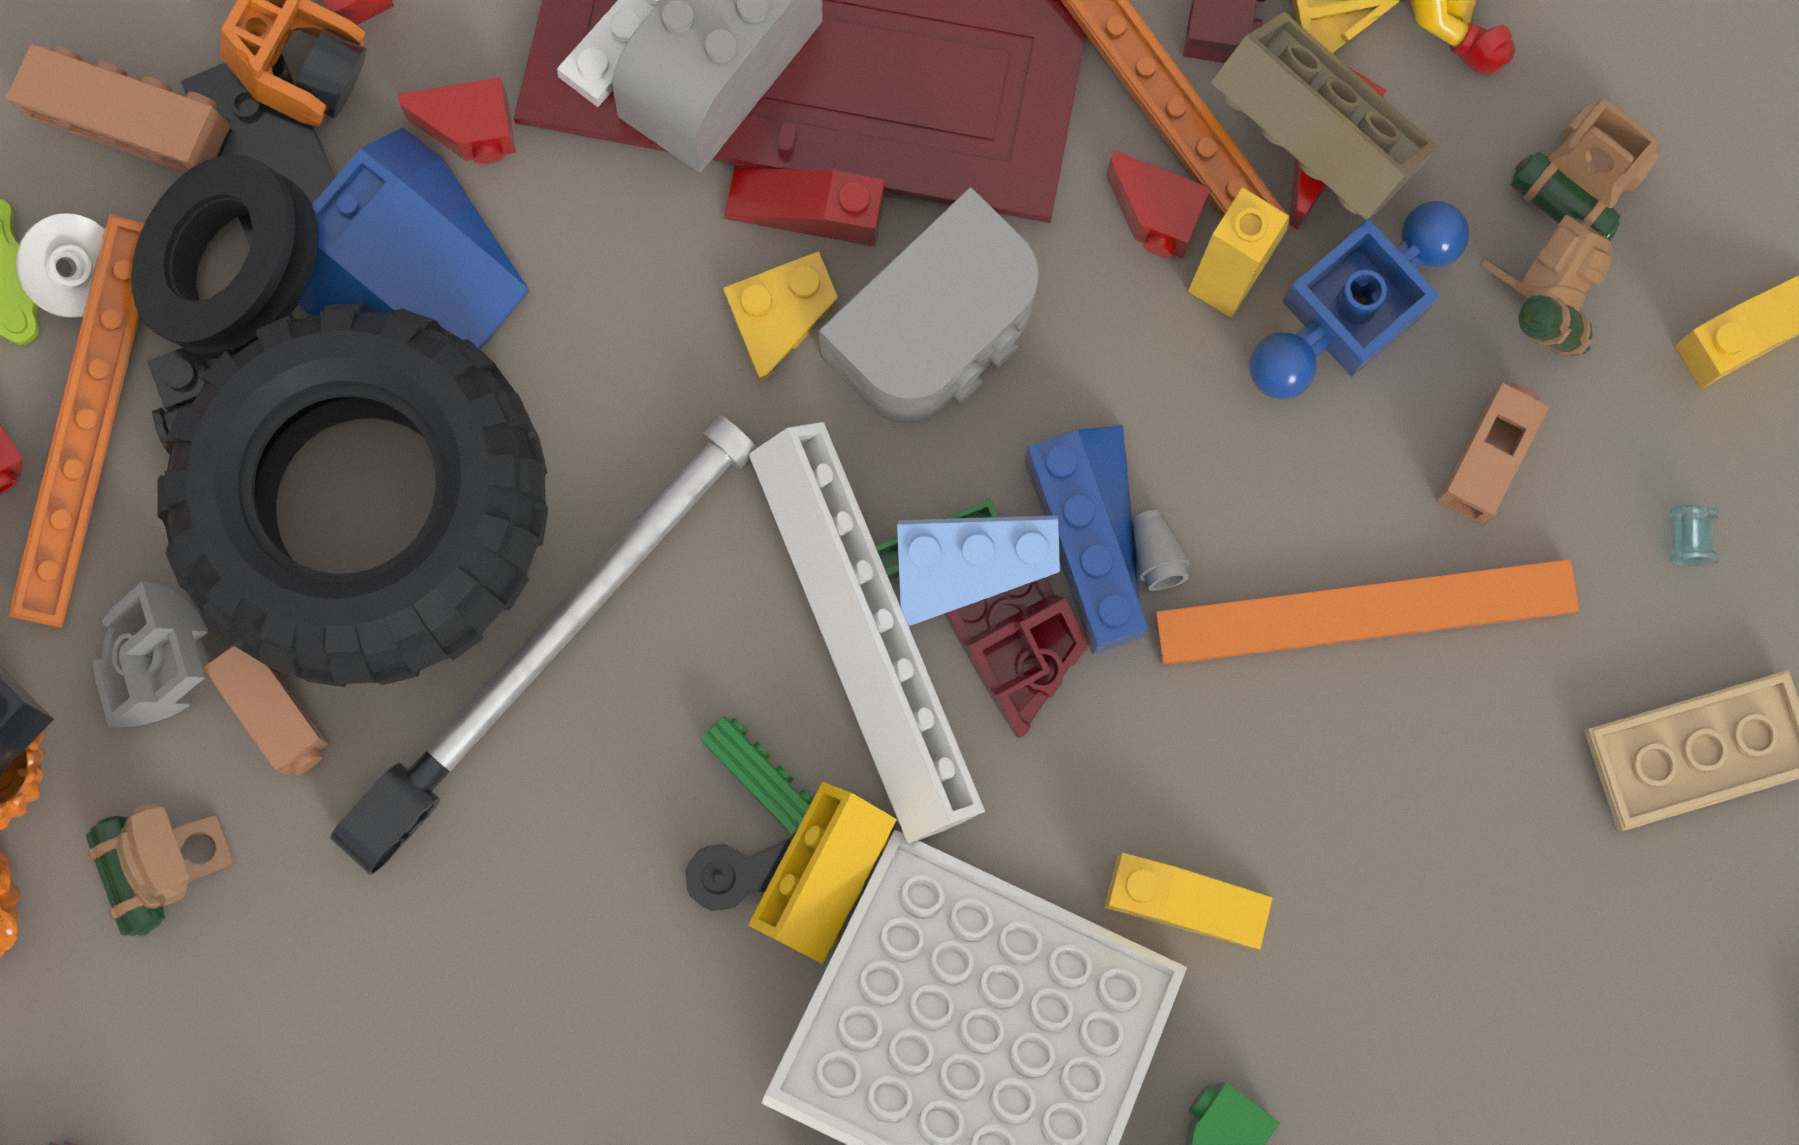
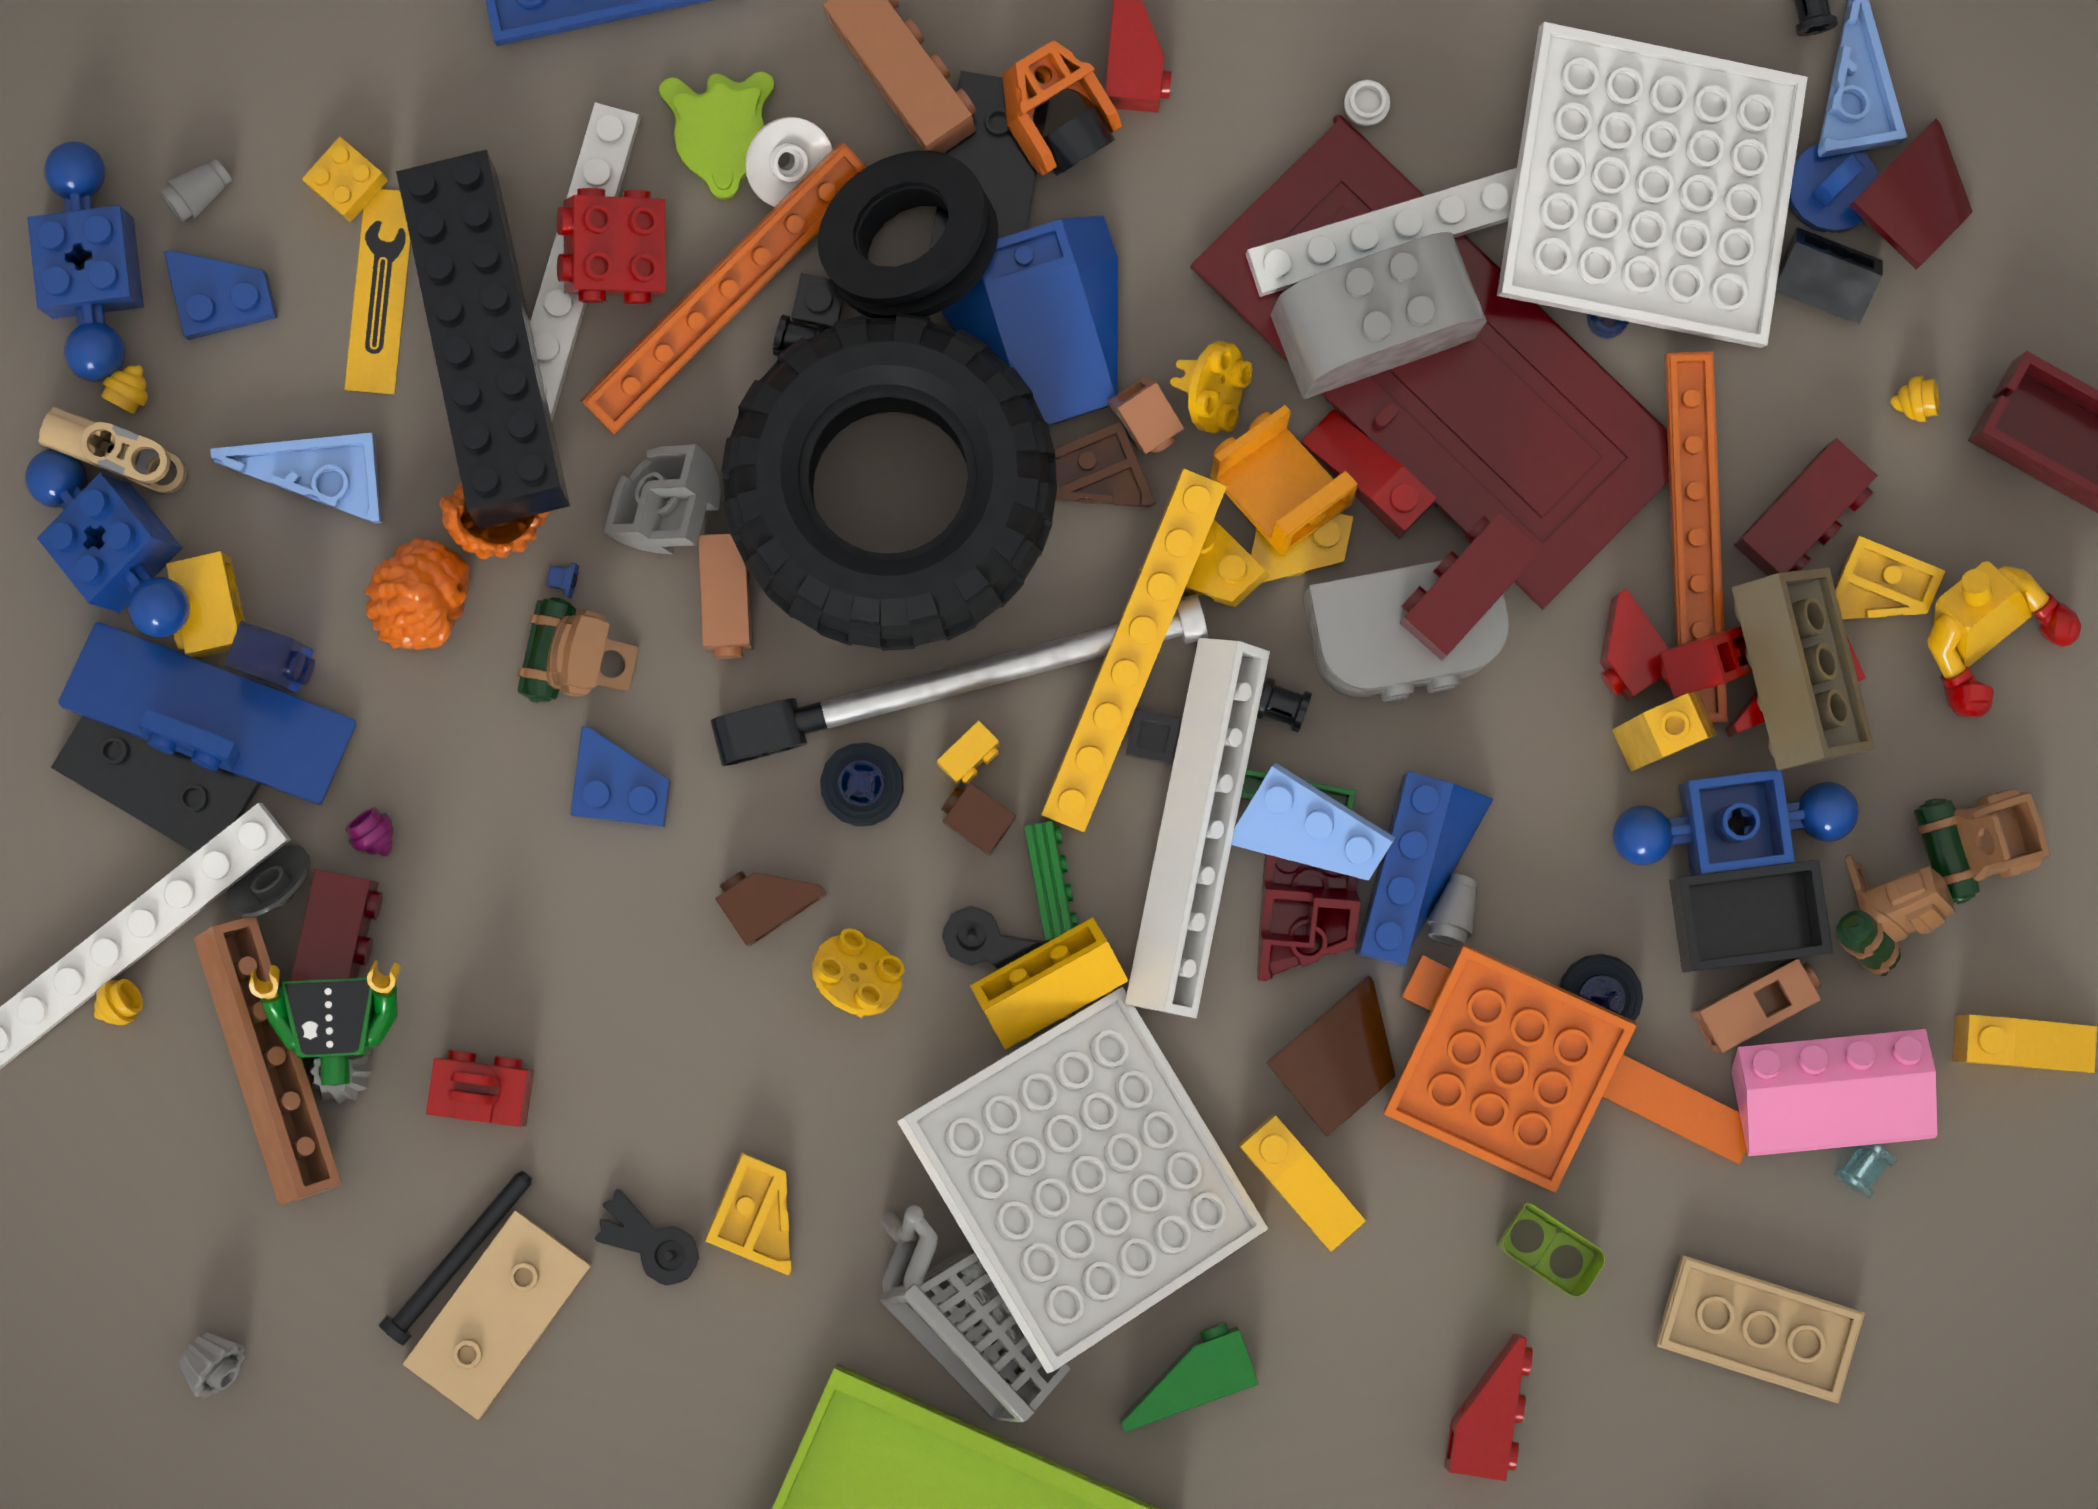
camera: 35 degrees right, 5 degrees up
(100, 797) = (563, 579): none -> blue piece
(279, 961) = (617, 785): none -> blue wing
(464, 118) = (1155, 241): red slope -> none
(497, 978) = (764, 902): none -> reddish brown slope
(500, 795) = (852, 771): none -> black wheel
(555, 360) = (1101, 470): none -> reddish brown wing
(563, 281) = (1146, 416): none -> nougat brick
(601, 705) = (968, 753): none -> yellow piece
(609, 212) = (1214, 386): none -> yellow plate
(631, 987) = (874, 985): none -> yellow plate
(650, 761) = (977, 817): none -> reddish brown brick
(694, 504) = (1133, 649): none -> yellow plate
(709, 381) = (1224, 569): none -> yellow wing
(728, 262) = (1279, 481): none -> light orange panel
(767, 575) = (1153, 736): none -> black plate
(870, 465) = (1283, 705): none -> black bush
(967, 230) = (1468, 584): none -> dark red brick
(1144, 762) = (1338, 1059): none -> reddish brown slope
(1232, 164) = (1705, 662): none -> red slope
(1309, 661) = (1509, 1068): none -> orange plate
(1321, 542) = (1601, 975): none -> black wheel
(1432, 373) = (1750, 916): none -> black piece
(1510, 797) = (1572, 1286): none -> lime piece
(1514, 1011) = (1484, 1424): none -> red slope
(1621, 483) = (1836, 1092): none -> bright pink slope

